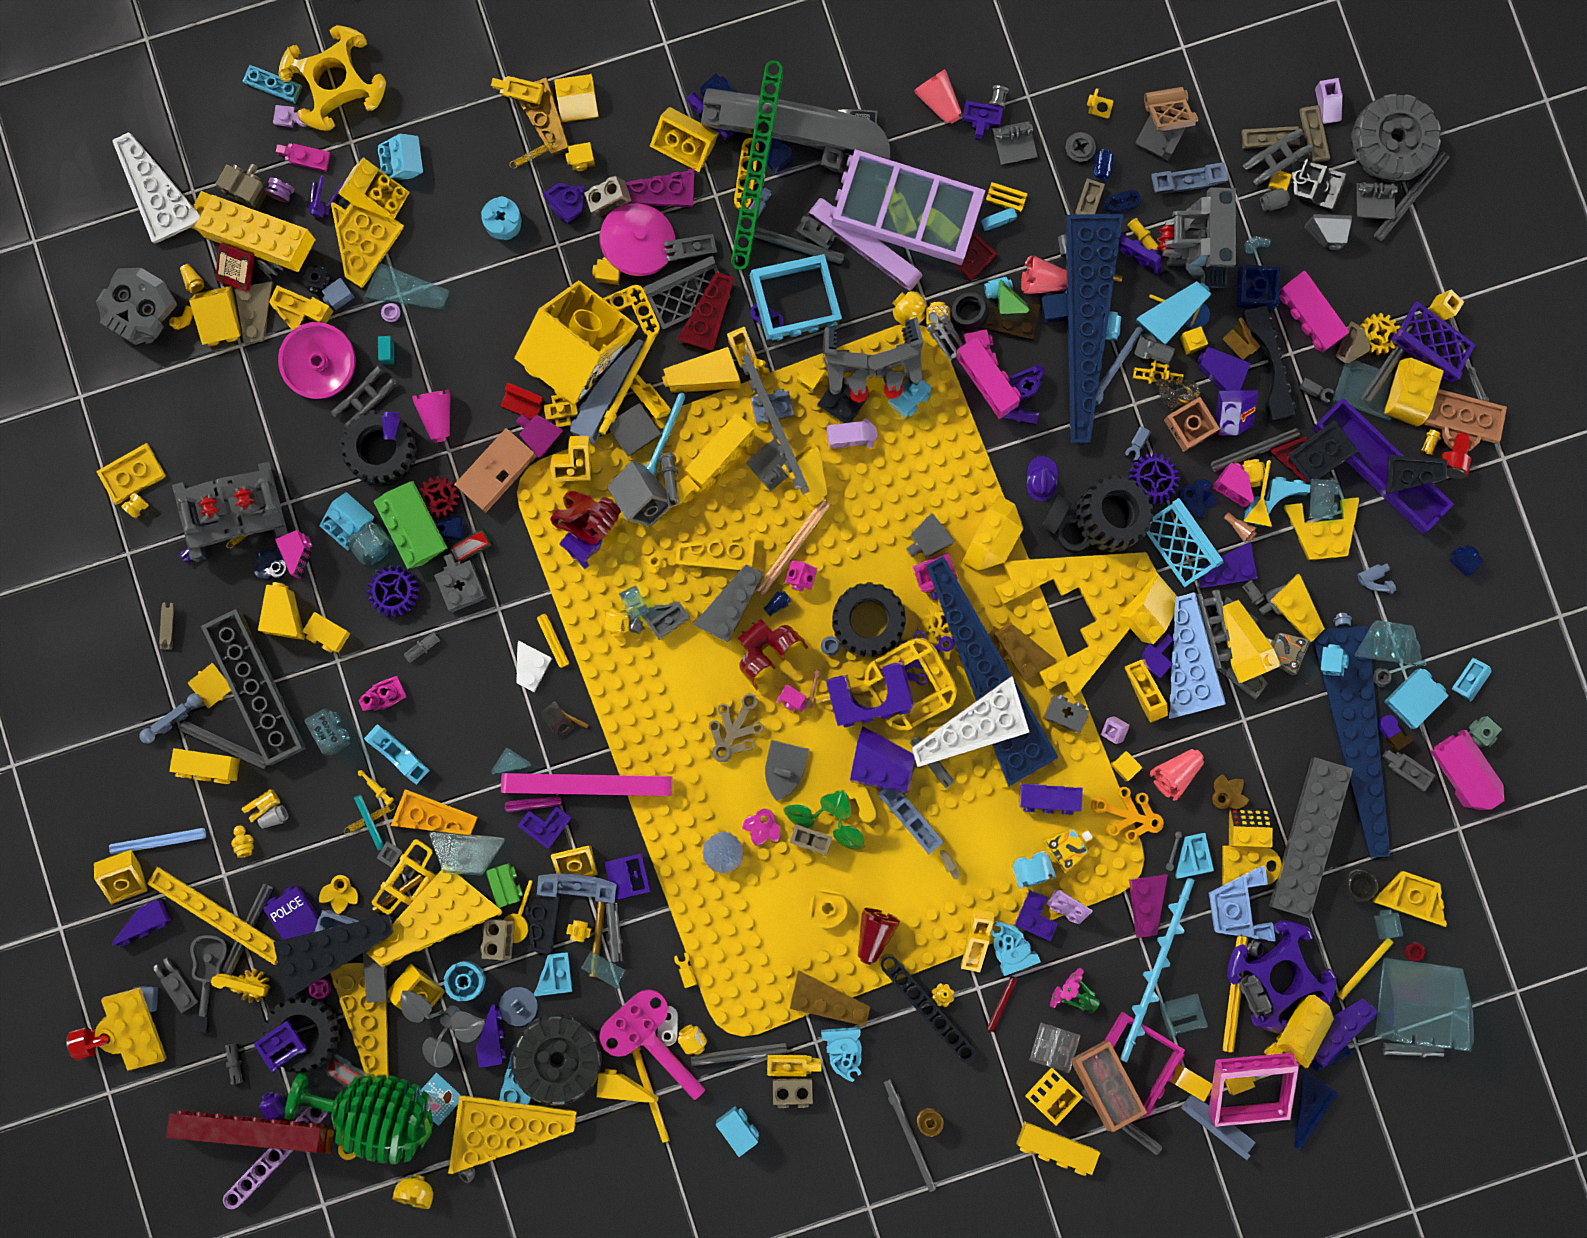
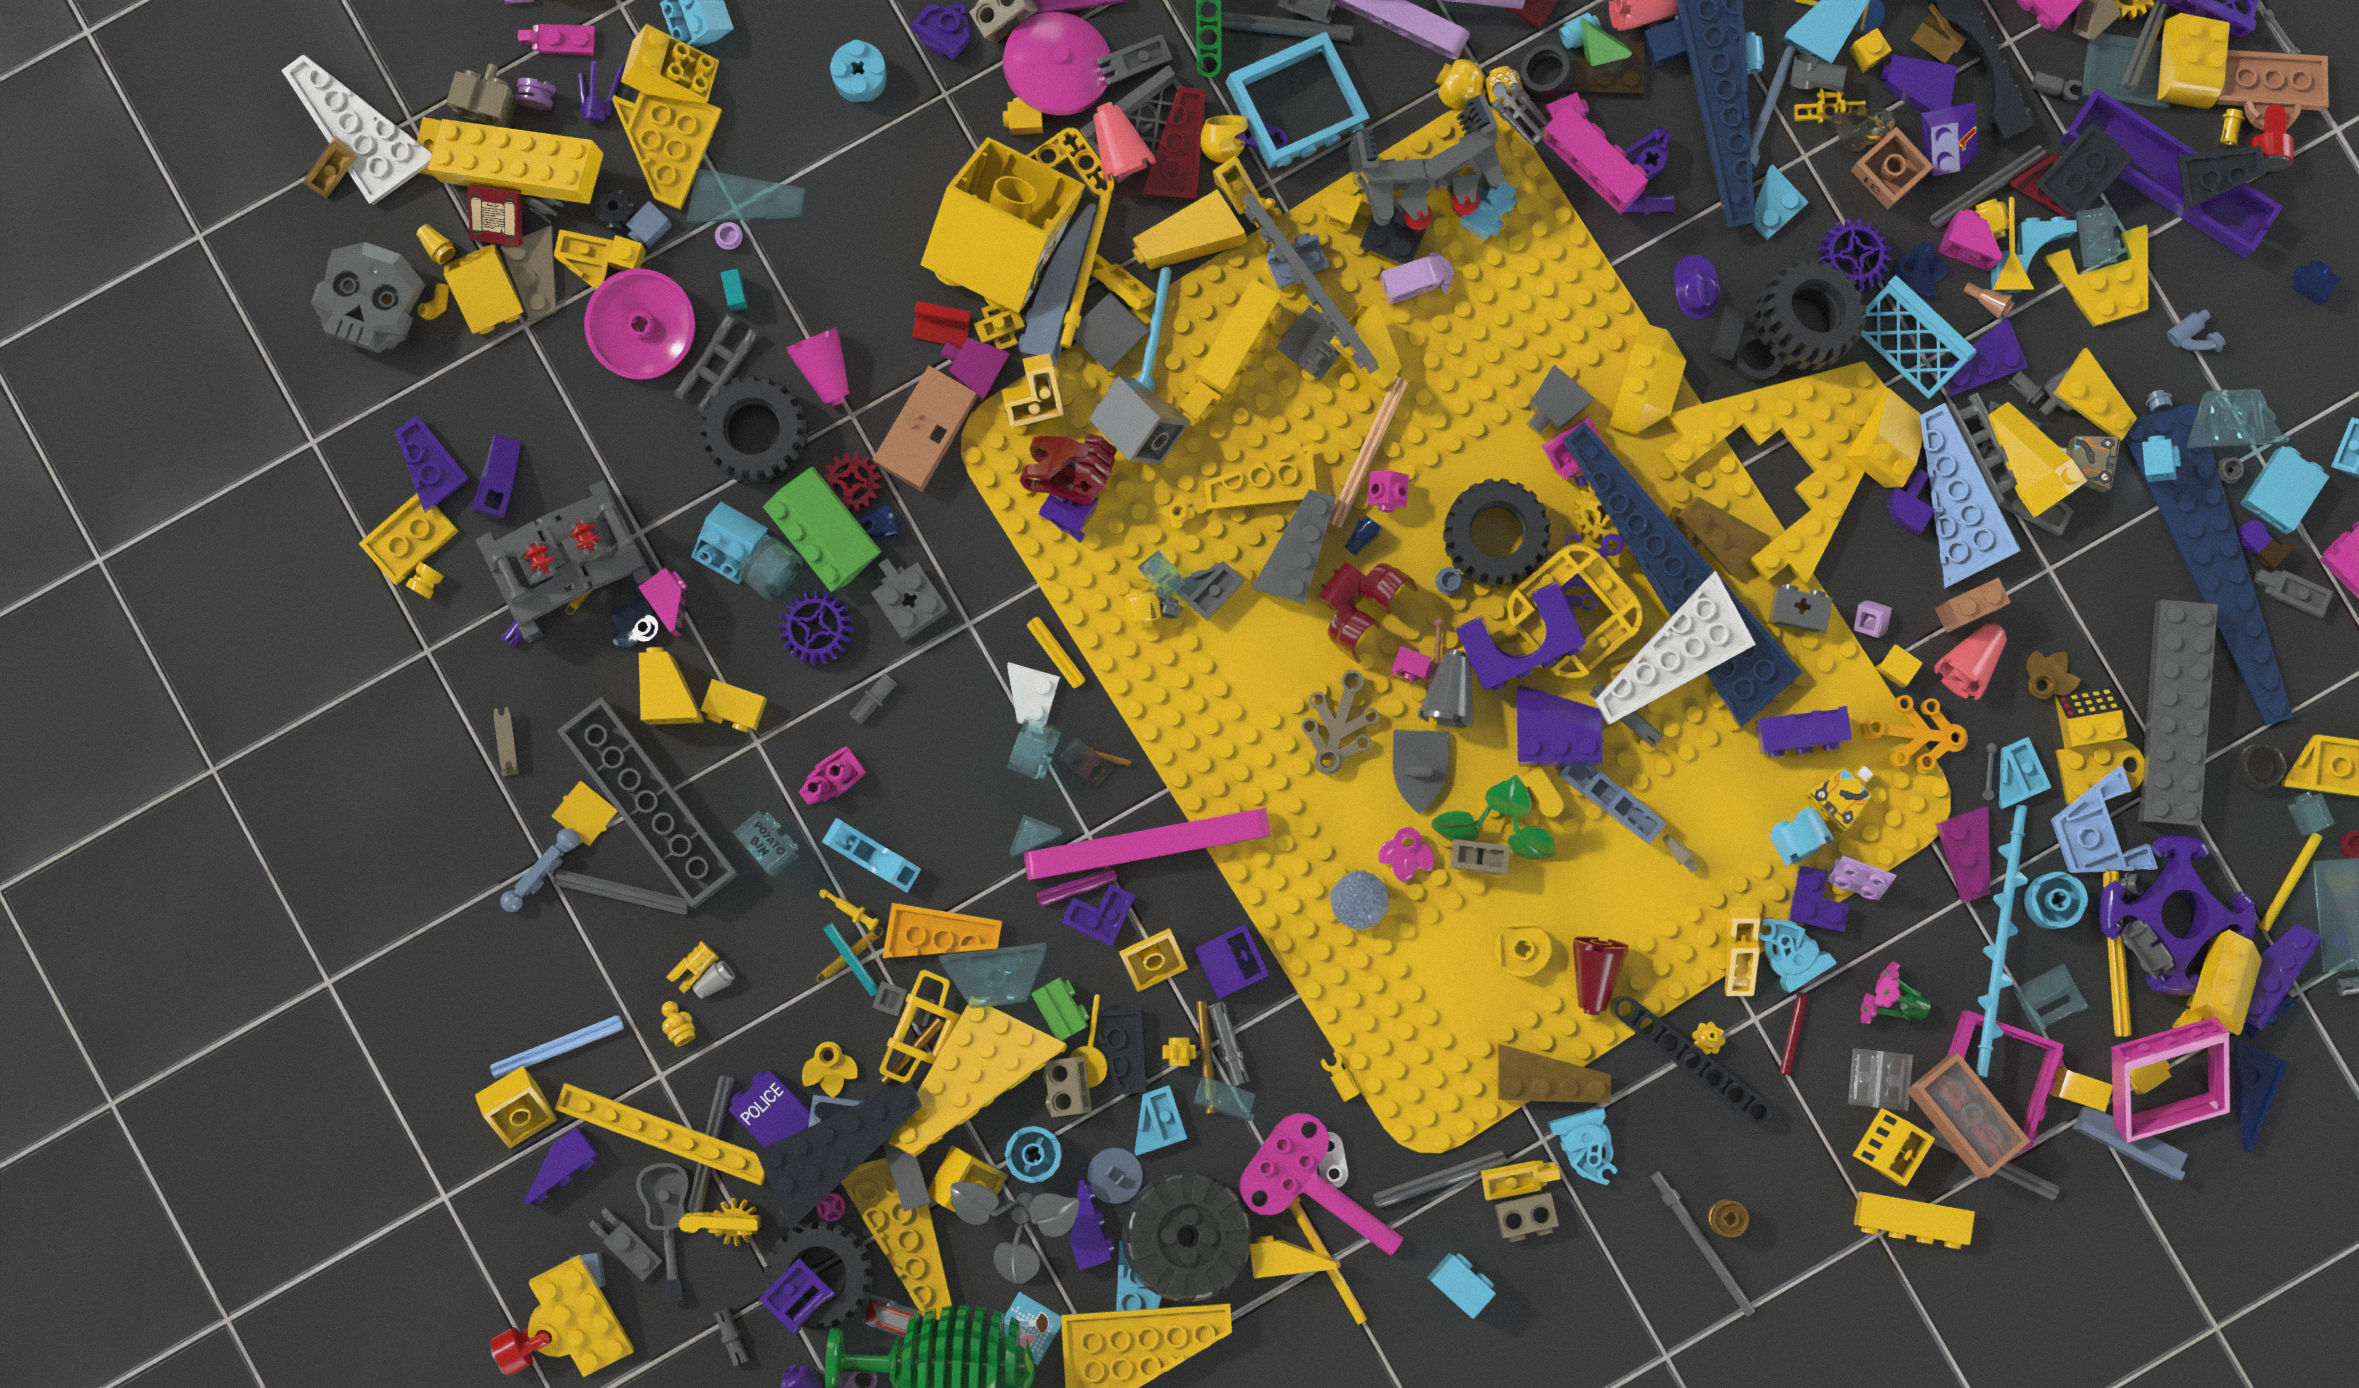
camera: 10 degrees left, 0 degrees up
(130, 212) = (330, 167): none -> pearl gold slope
(155, 428) = (429, 464): none -> dark purple wing
(199, 445) = (497, 478): none -> dark purple slope
(204, 766) = (603, 926): yellow brick -> none
(390, 424) = (766, 392): dark purple cone -> none
(470, 546) = (912, 542): slope -> none
(522, 703) = (1031, 748): none -> clear light blue brick
(576, 885) = (1164, 988): sand blue slope -> none
(666, 302) = (1119, 143): none -> coral cone
(669, 473) = (1172, 382): dark grey pin -> none
(692, 1040) = (1370, 1172): yellow head -> none
(736, 312) = (1219, 138): none -> yellow helmet
(814, 723) = (1450, 693): none -> dark grey cone
(1108, 432) = (1776, 203): none -> medium azure wing
(1138, 442) = (1822, 208): sand blue bar -> none
(1147, 691) = (1906, 555): yellow slope -> none
(1184, 735) = (1972, 605): none -> nougat brick
(1208, 956) = (2046, 887): none -> medium azure brick

